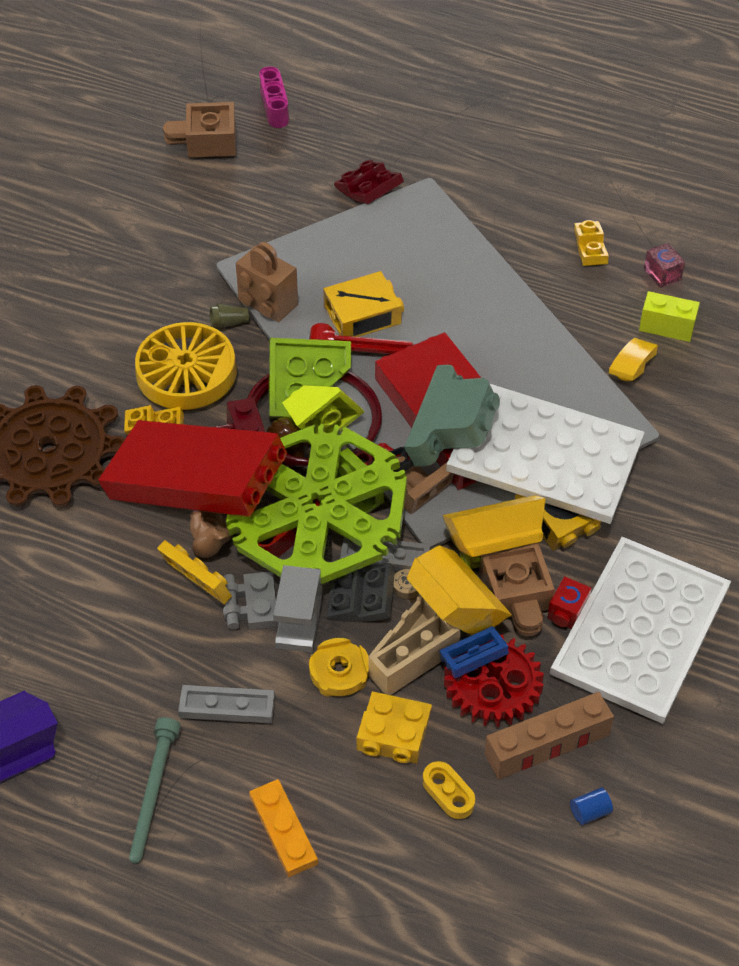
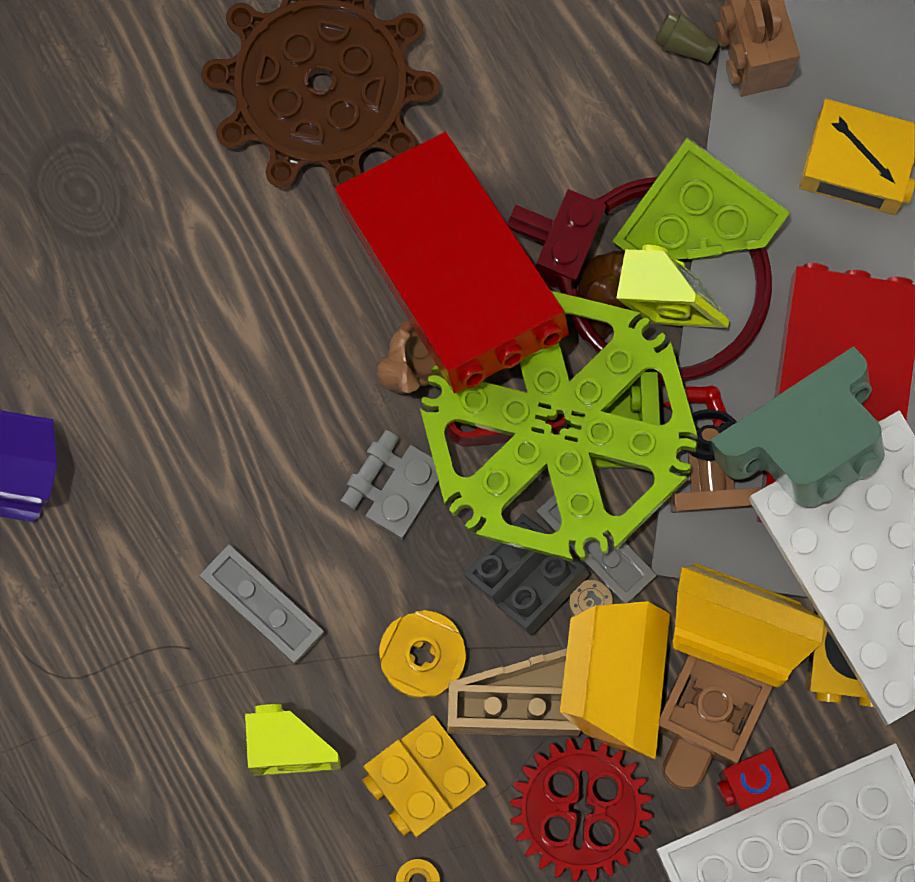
camera: 35 degrees right, 25 degrees up
(146, 413) = (474, 138): yellow slope -> none
(166, 732) = (168, 590): sand green piece -> none
(185, 367) = (593, 83): yellow piece -> none
(195, 570) = (352, 404): yellow plate -> none
(283, 828) = (208, 803): light orange plate -> none
(298, 608) = (426, 549): light grey piece -> none
(305, 753) = (284, 744): none -> neon yellow slope
(325, 332) = (770, 173): red axle -> none
(476, 655) = (573, 782): blue tile -> none

